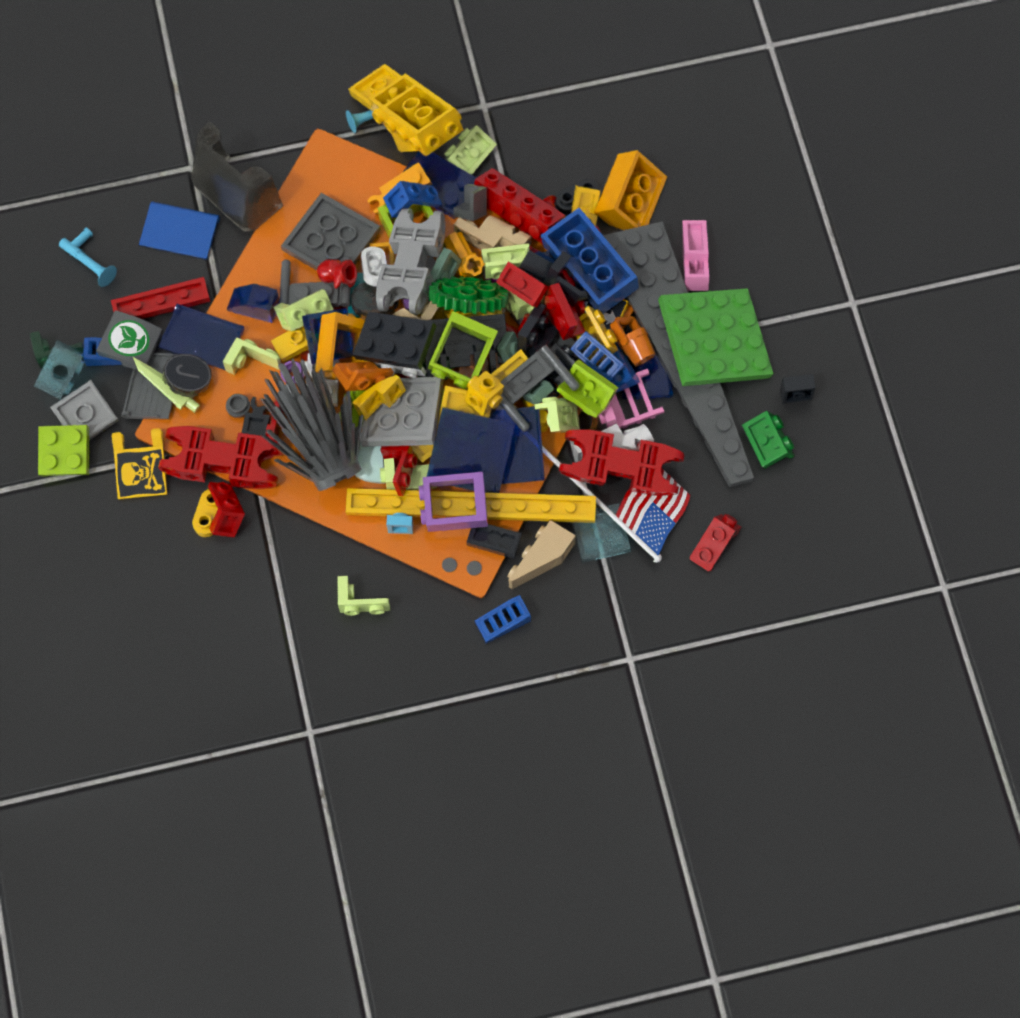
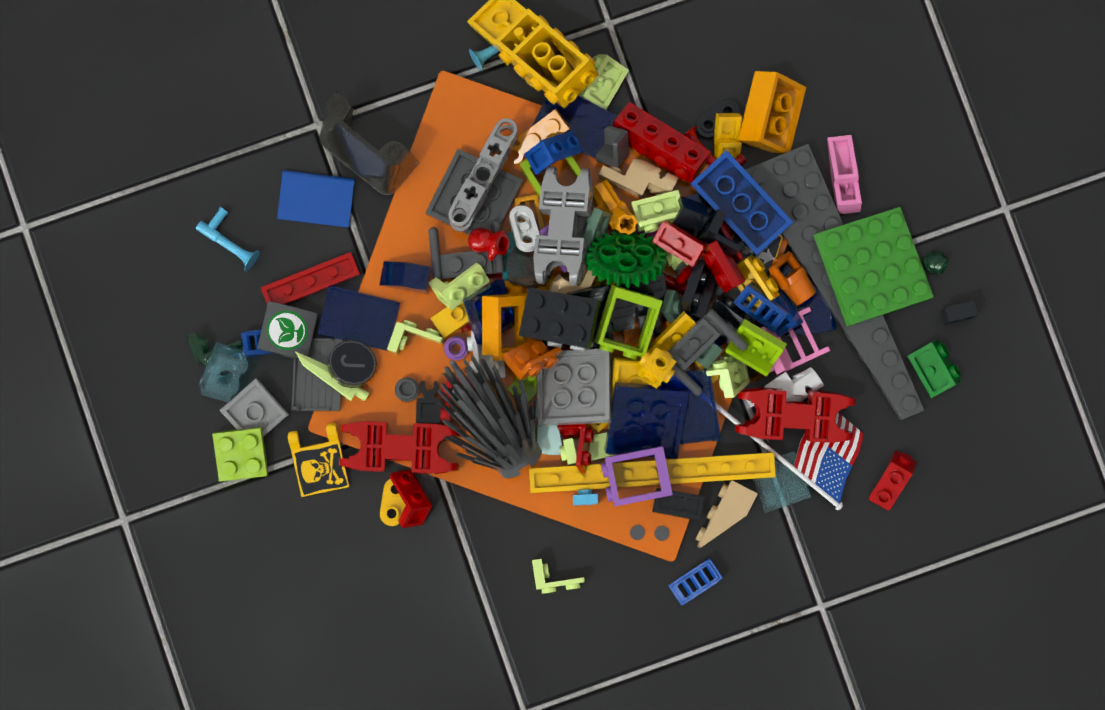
camera: 10 degrees left, 15 degrees up
(326, 224) = (487, 162): none -> light grey piece
(384, 392) = (557, 371): yellow slope -> none
(779, 342) = (936, 262): none -> clear green plate

